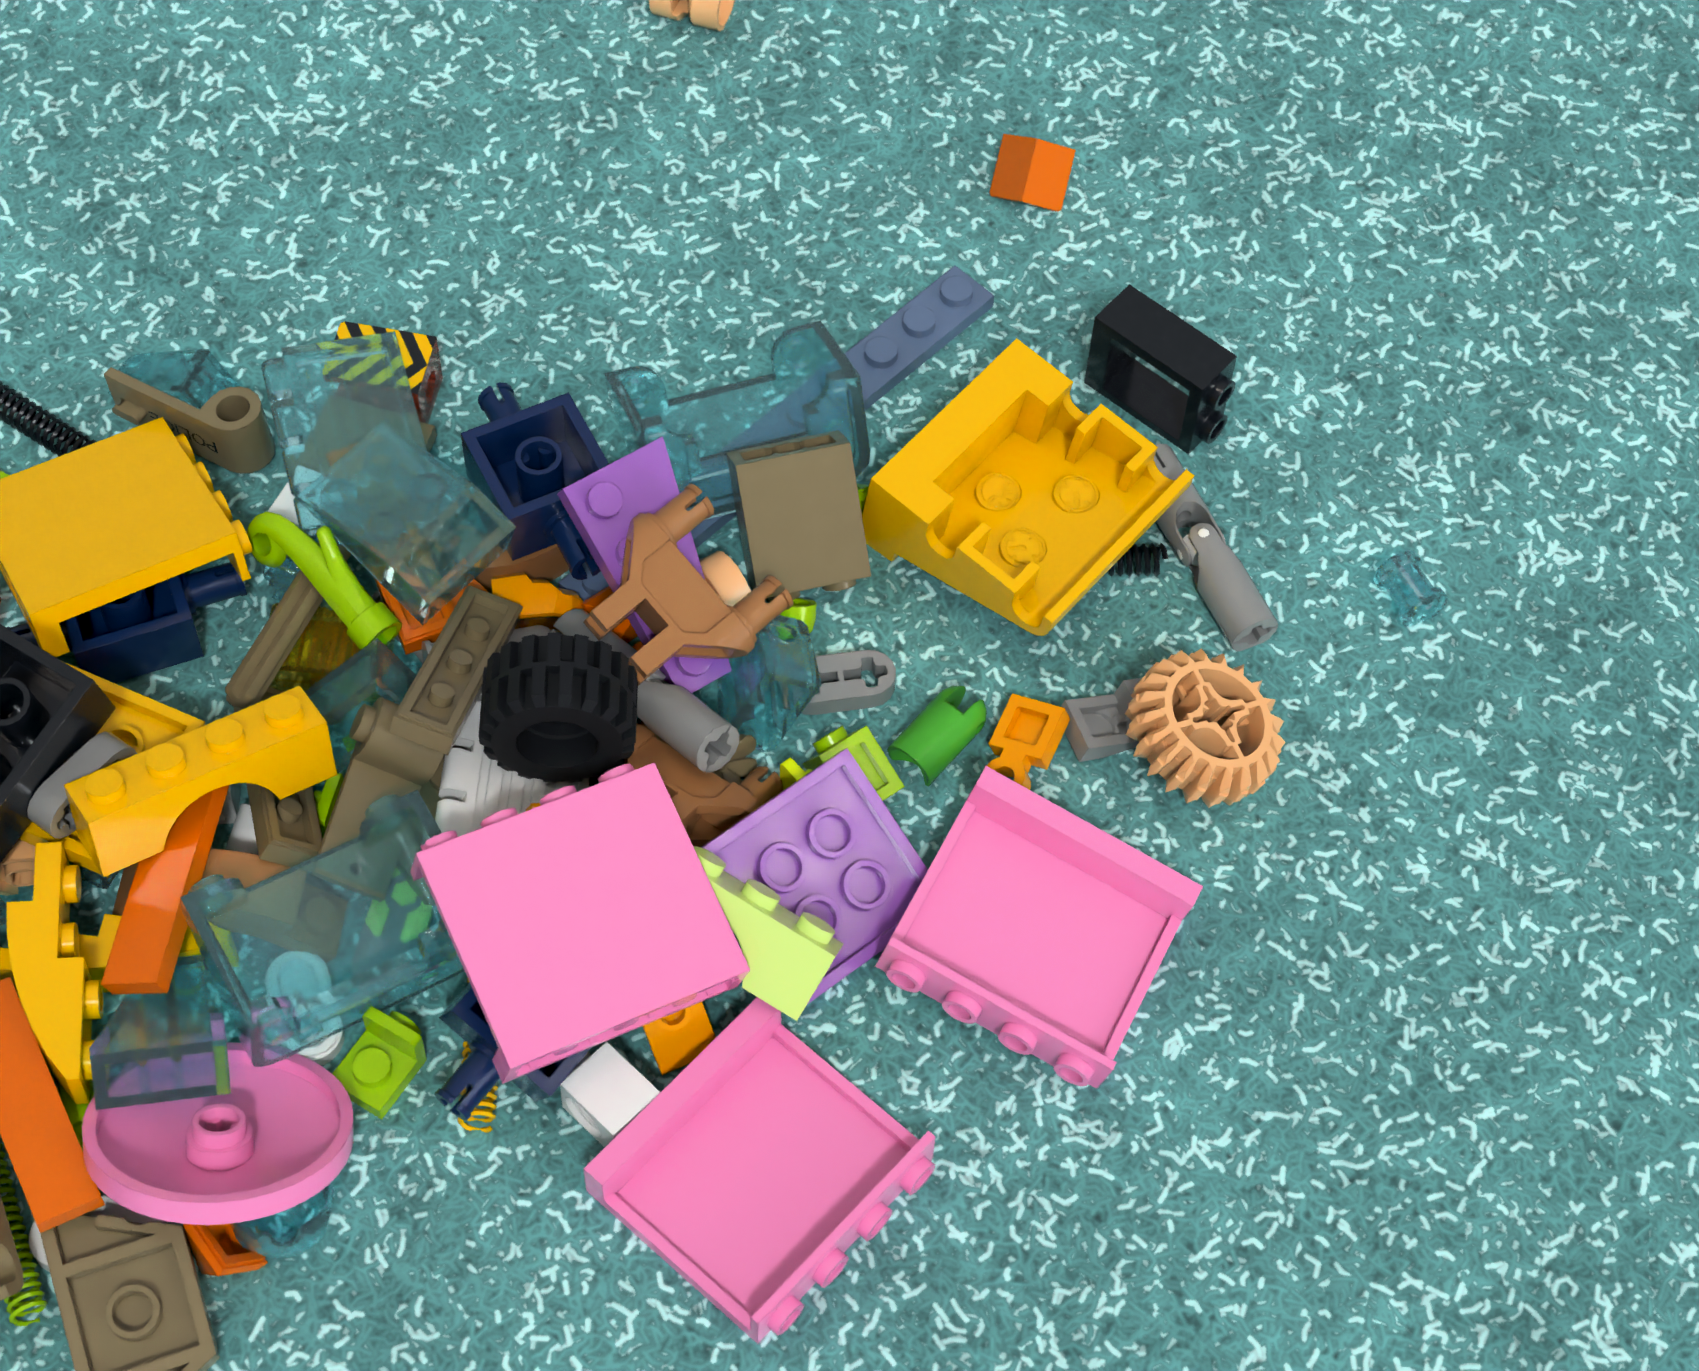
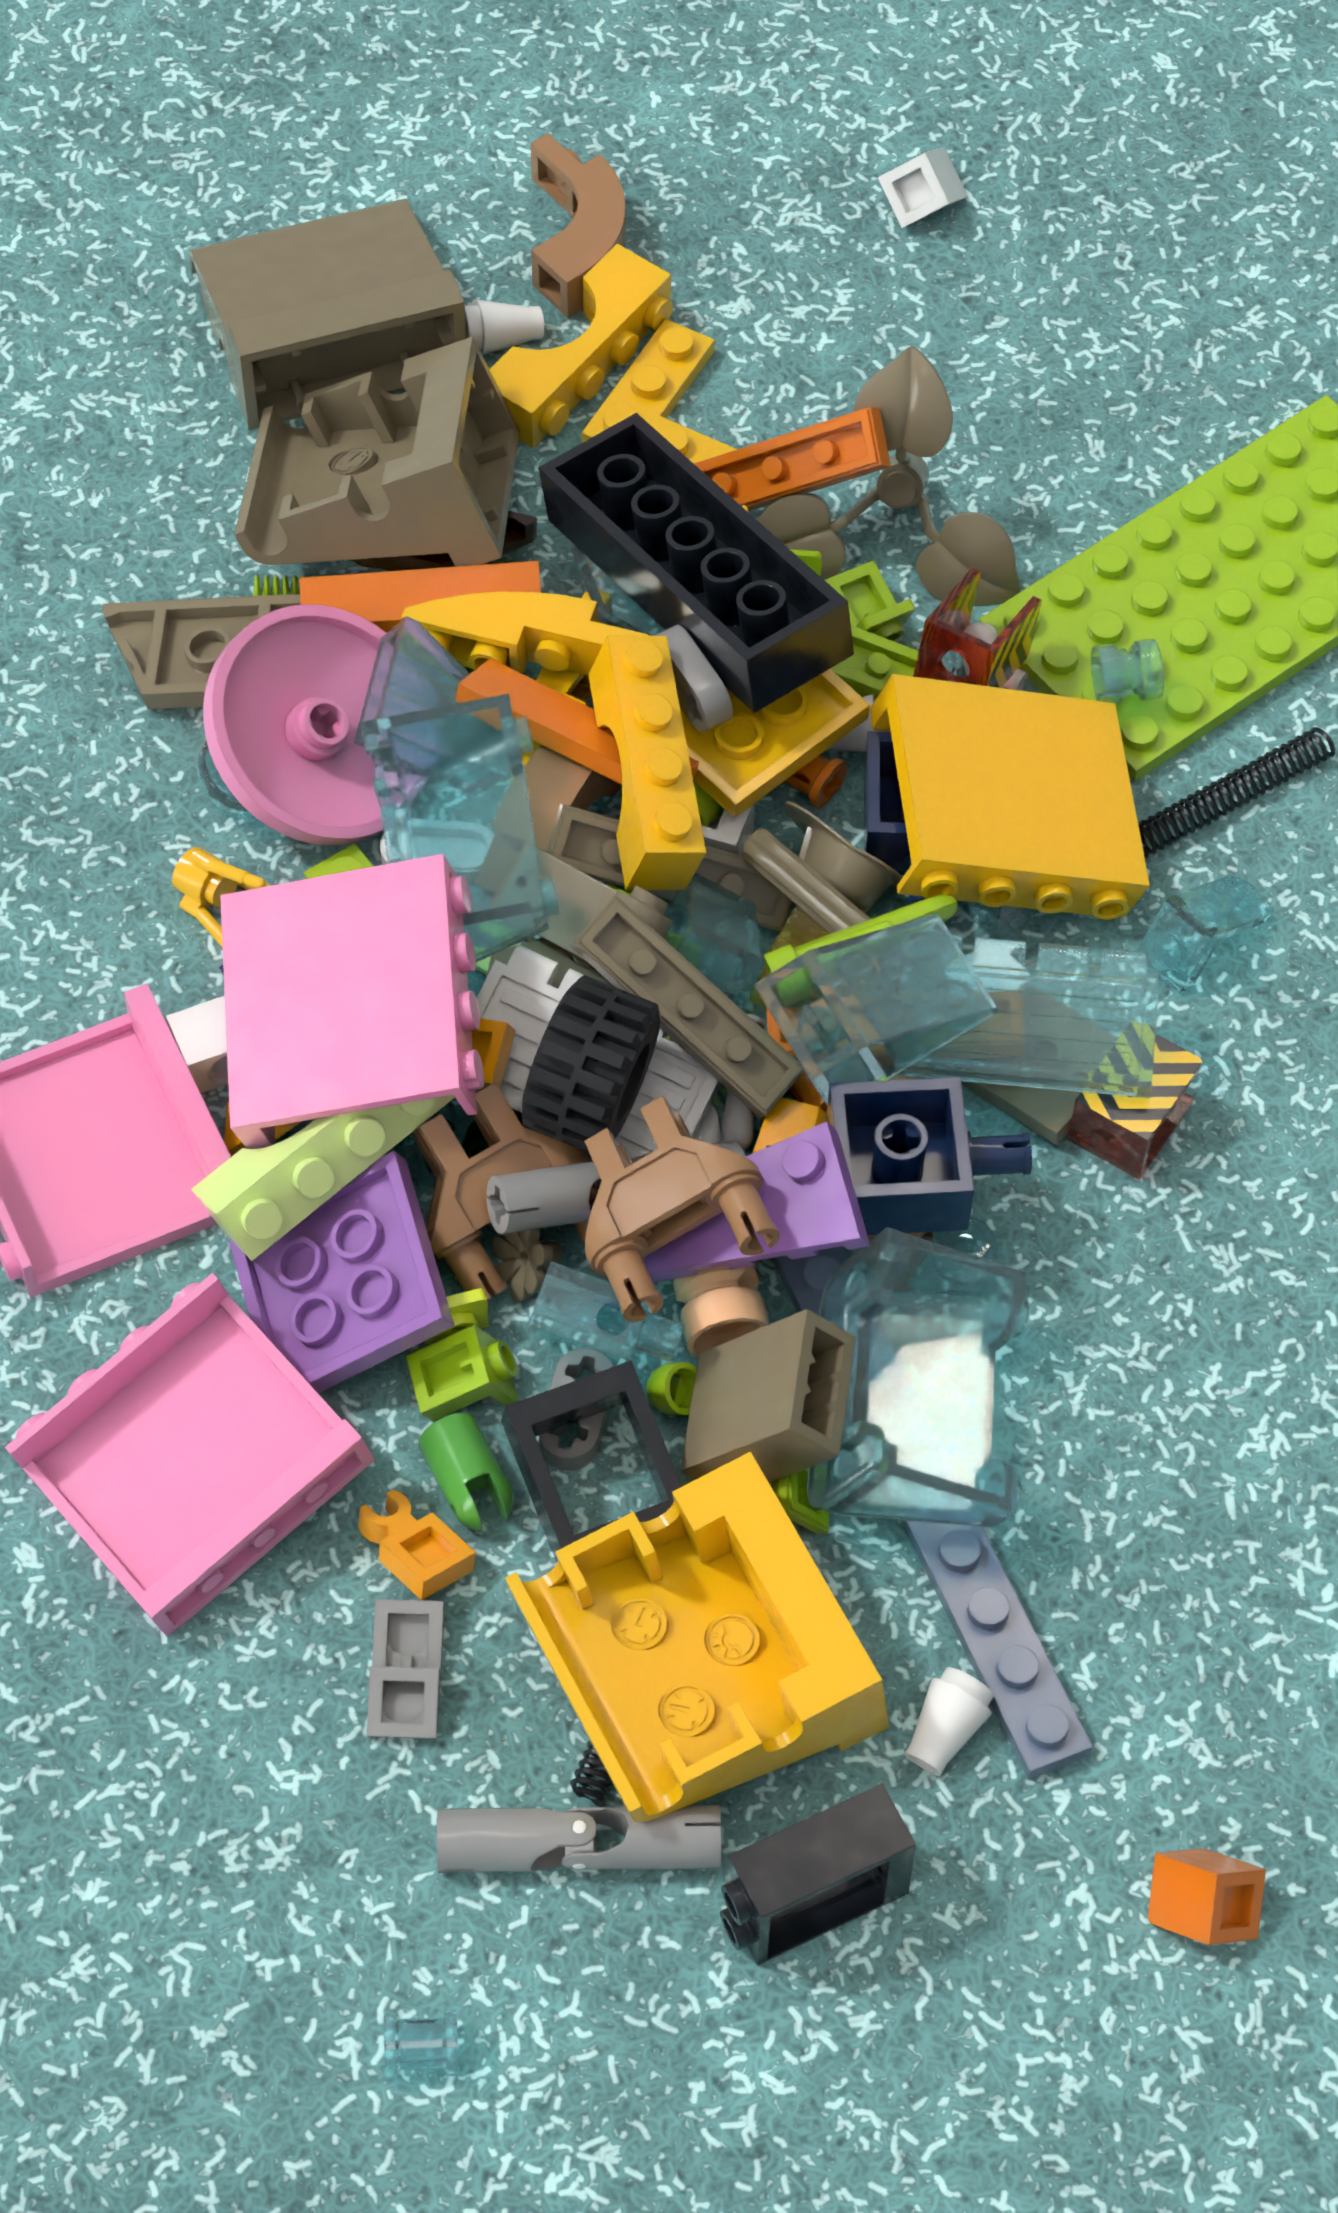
camera: 115 degrees right, 0 degrees up
(220, 652) = (841, 864): none -> dark tan piece
(225, 430) = (1125, 919): dark tan door -> none
(419, 1189) = (203, 880): none -> yellow plant
(887, 677) = (573, 1403): none -> black window
(970, 349) = (949, 1718): none -> white cone
(1204, 728) = (330, 1679): light nougat gear -> none

